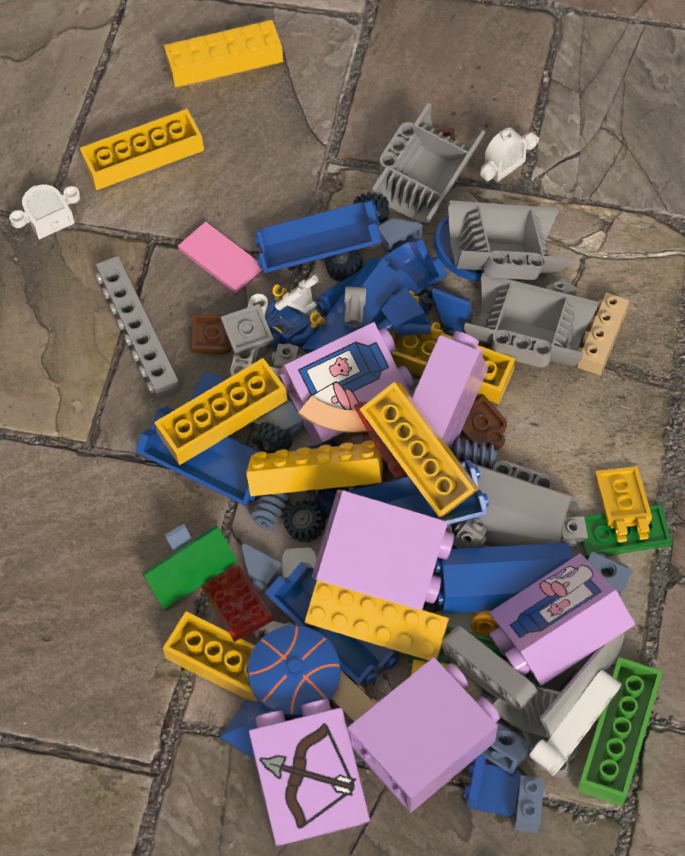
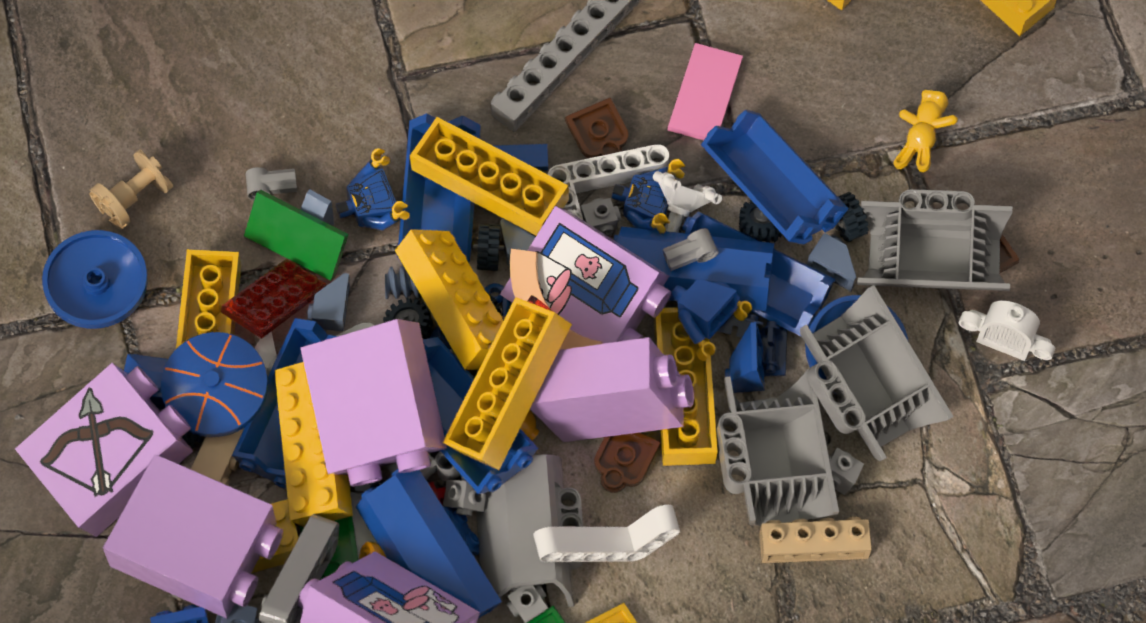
camera: 60 degrees right, 5 degrees up
(86, 687) = (123, 195): none -> tan piece
(128, 576) = (270, 181): none -> light grey piece
(145, 732) = (95, 279): none -> blue dish
(186, 503) = (372, 197): none -> torso
(247, 329) = (610, 158): light grey plate -> none
(329, 143) = (922, 133): none -> yellow animal
(475, 454) = (575, 464): sand blue piece -> none
(553, 447) = (608, 543): none -> white beam

